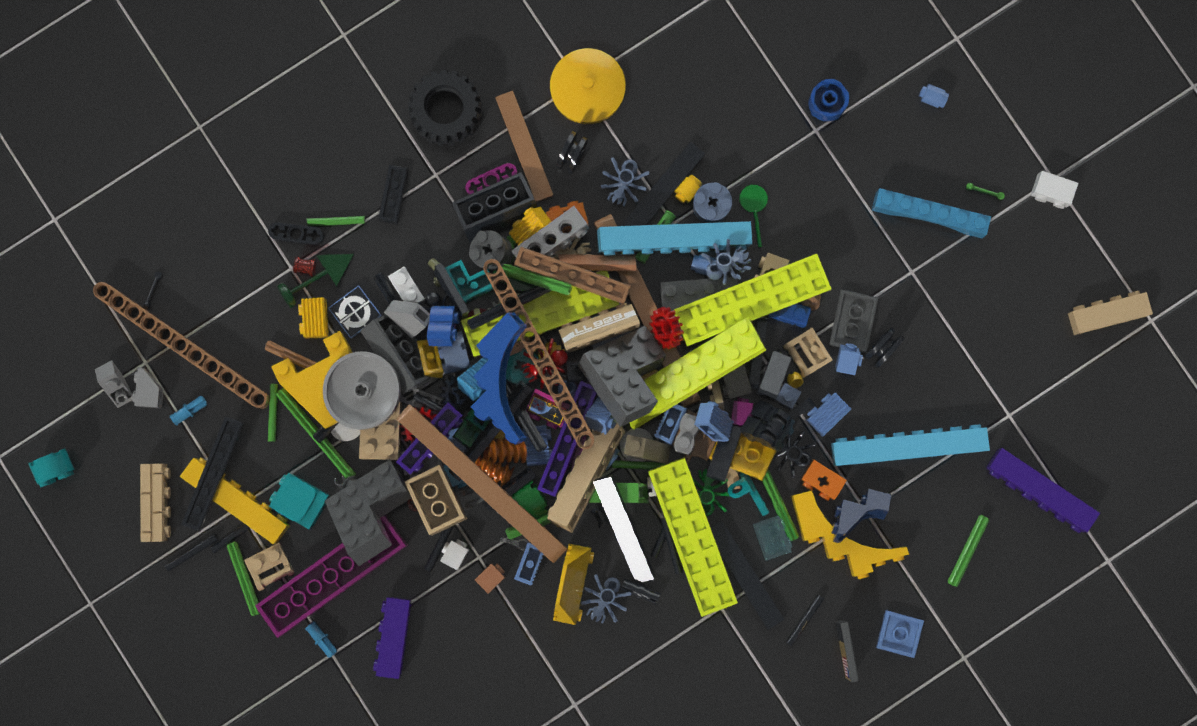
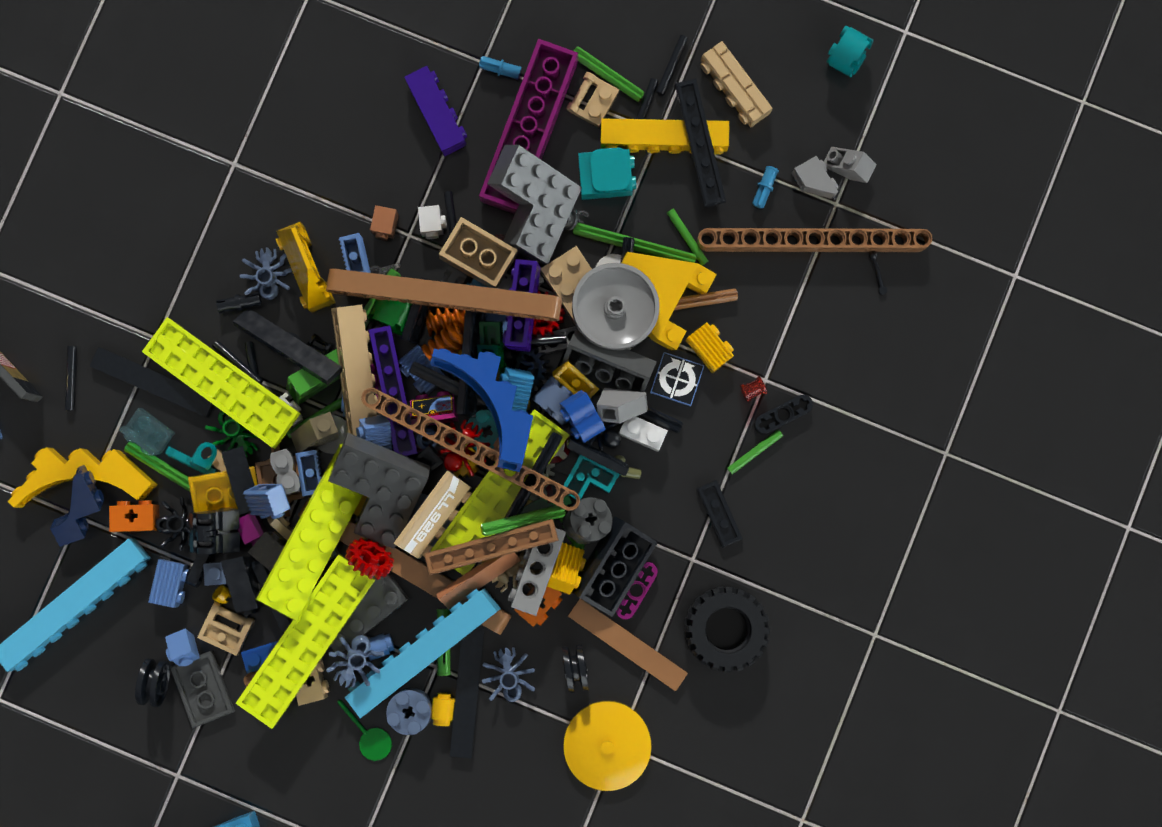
camera: 150 degrees right, 0 degrees up
(334, 265) = (726, 408): dark green piece -> none

